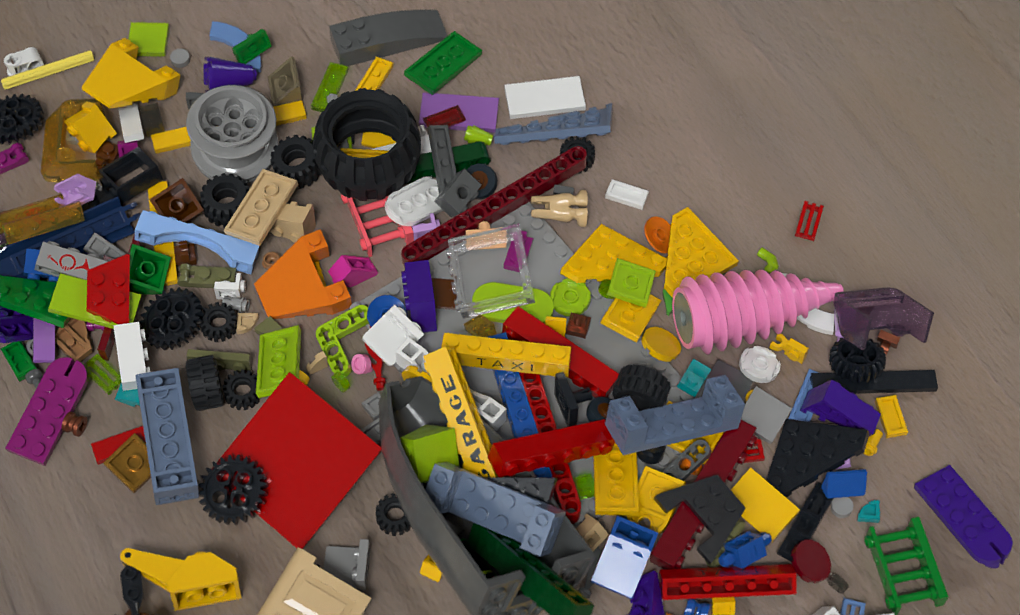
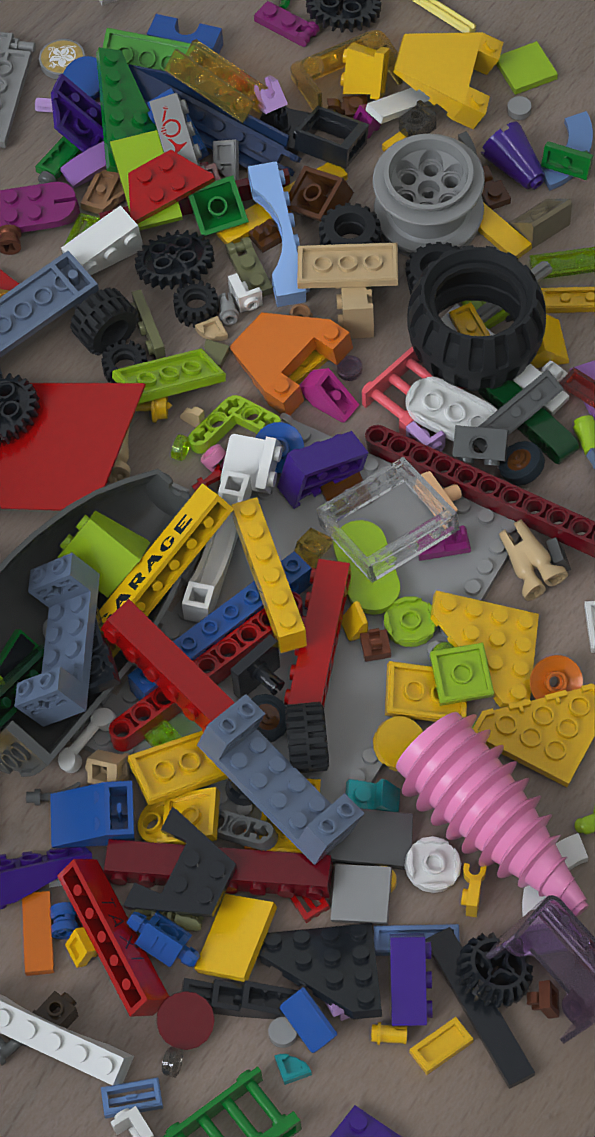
camera: 70 degrees right, 0 degrees up
(336, 249) = (349, 368): none -> clear purple tile

